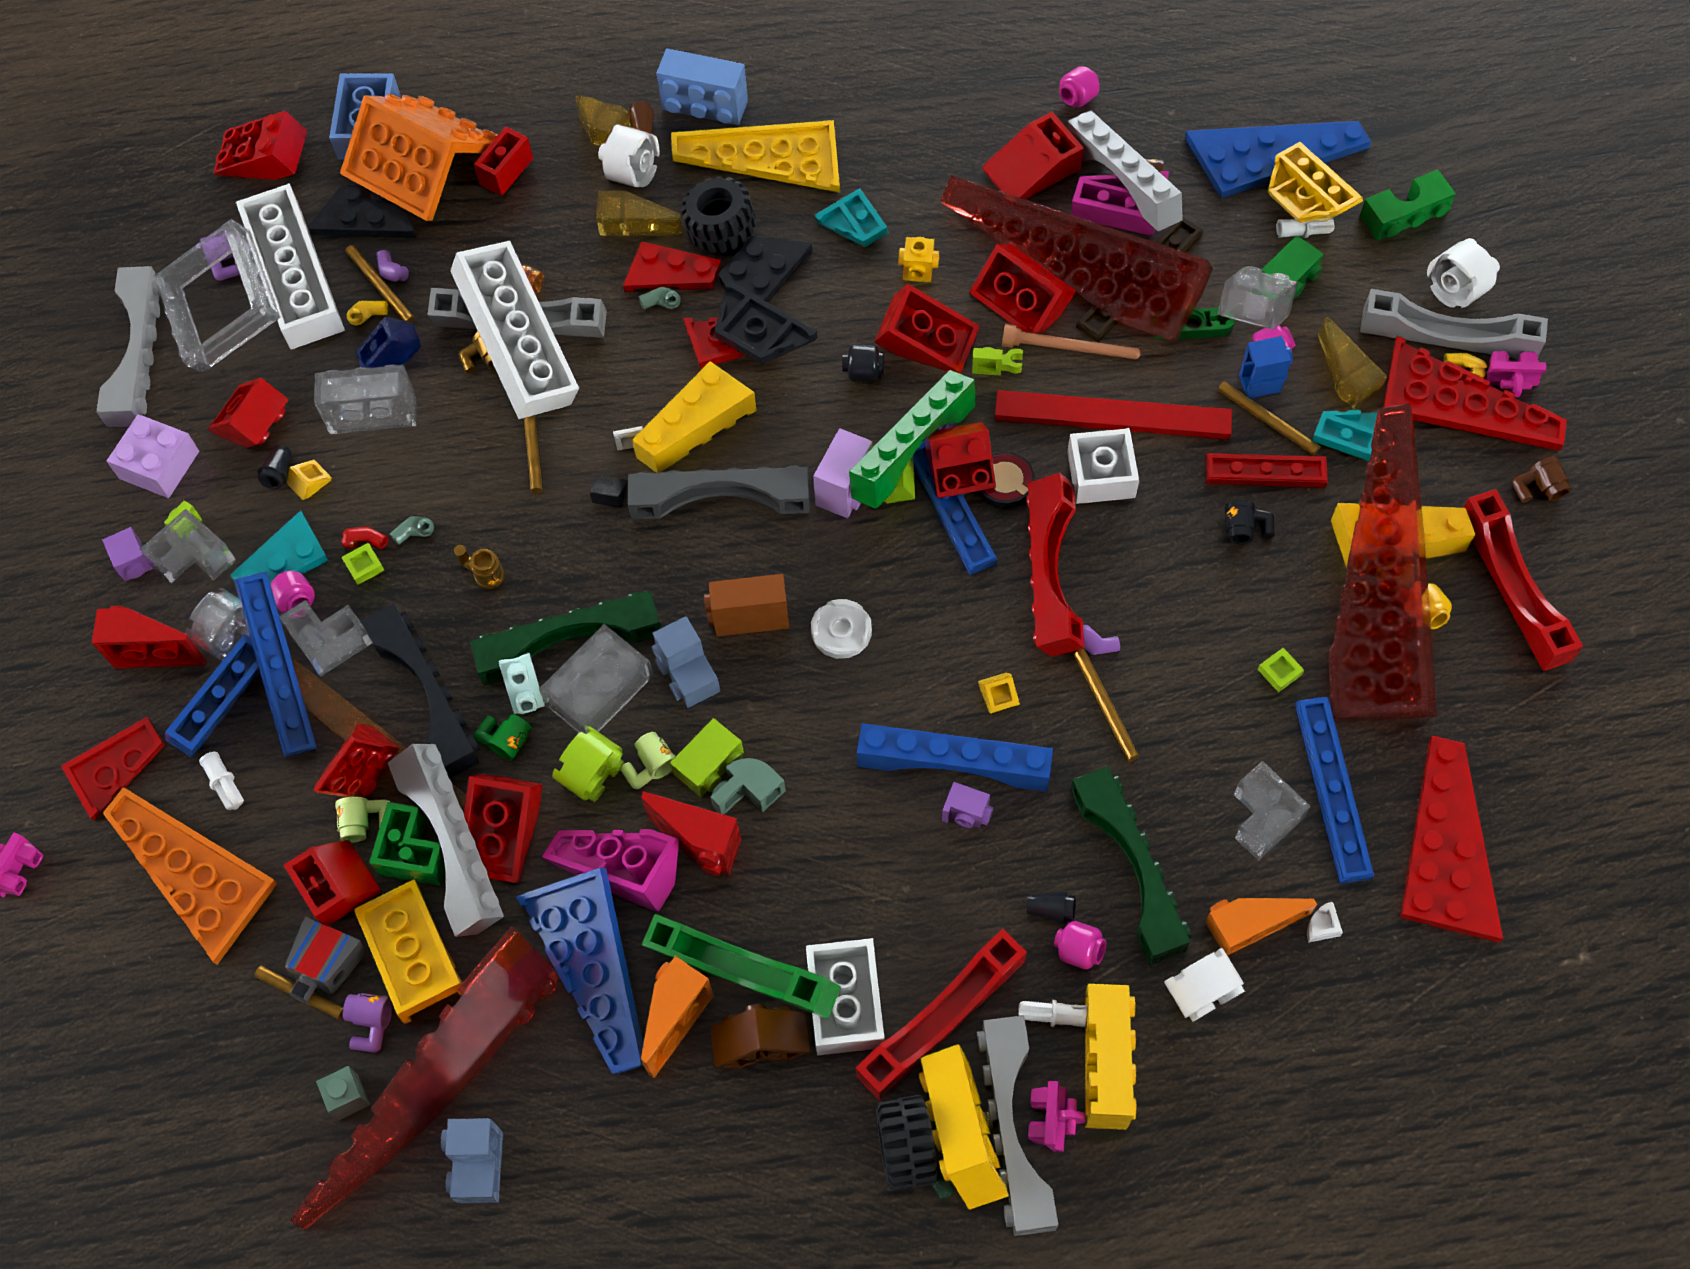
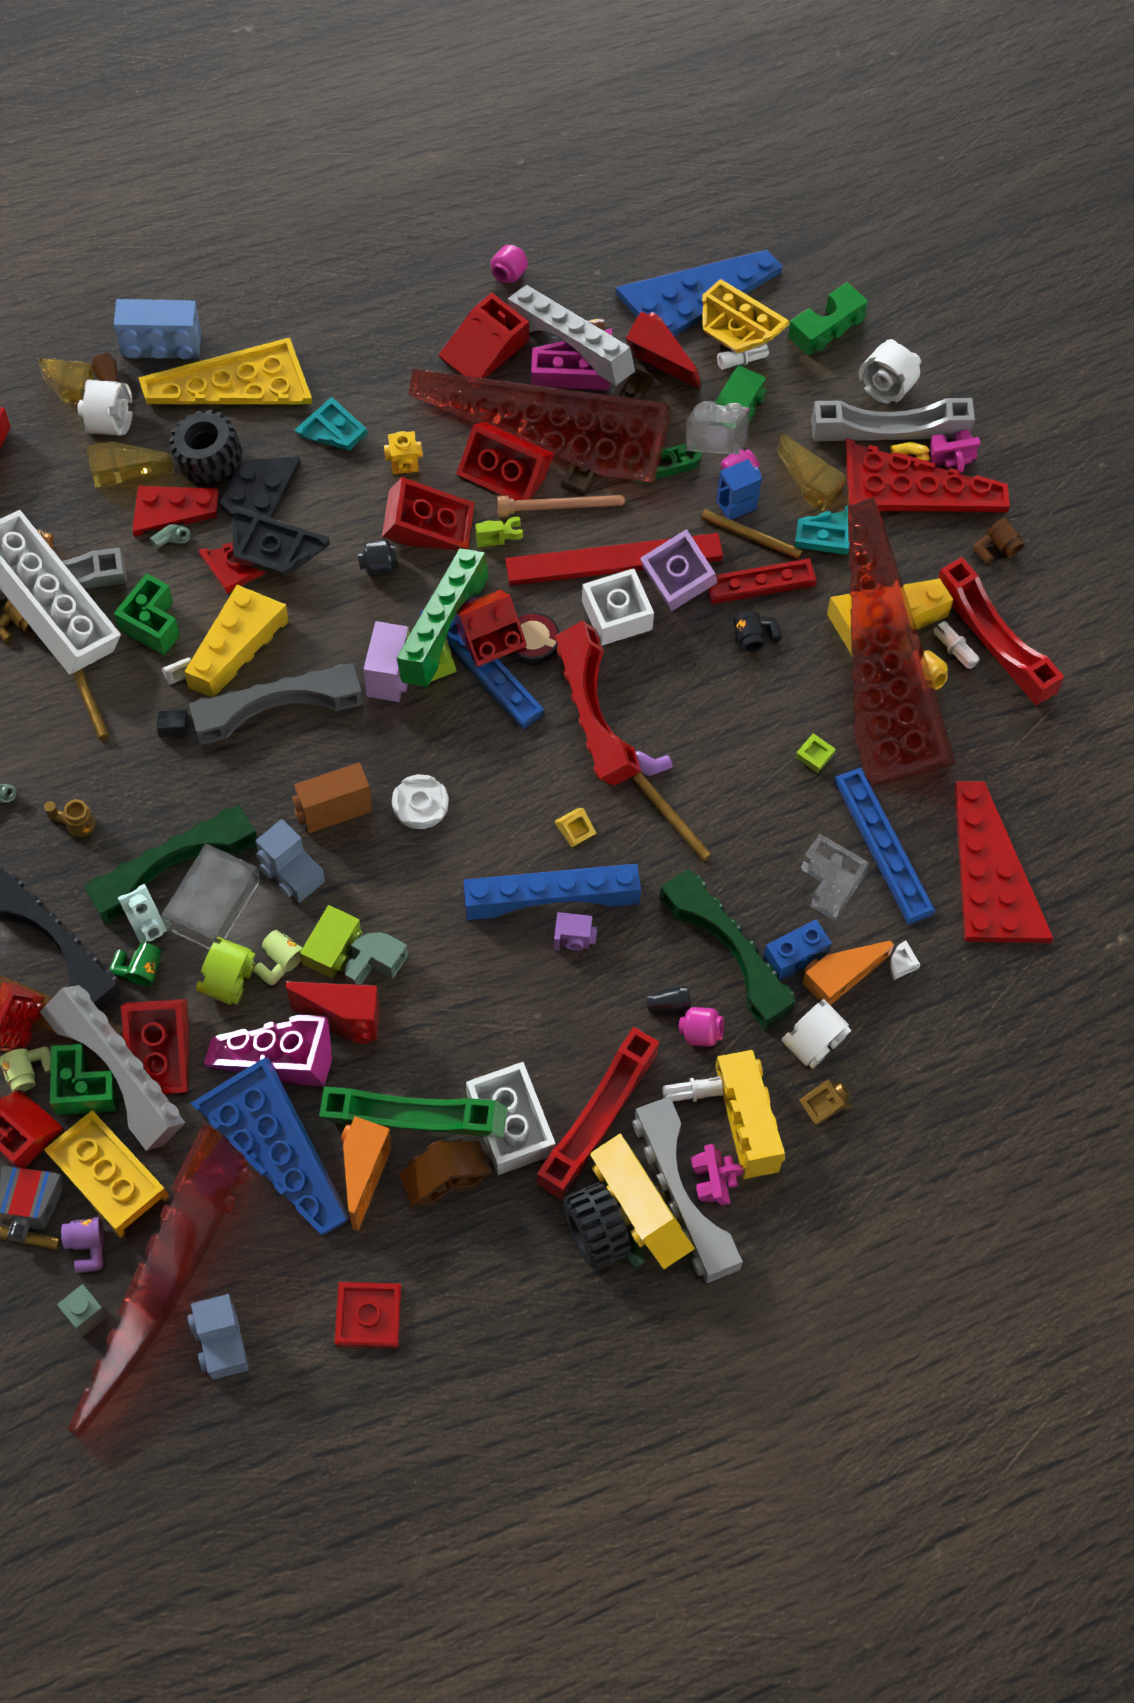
camera: 20 degrees left, 0 degrees up
(610, 373) = (145, 615): none -> green brick
(638, 1175) = (368, 1315): none -> red tile
(1178, 440) = (679, 570): none -> lavender brick
(1198, 1062) = (826, 1101): none -> pearl gold bracket
(1207, 884) = (797, 949): none -> blue brick
(1213, 199) = (656, 345): none -> red slope
(1468, 585) = (956, 645): none -> white axle

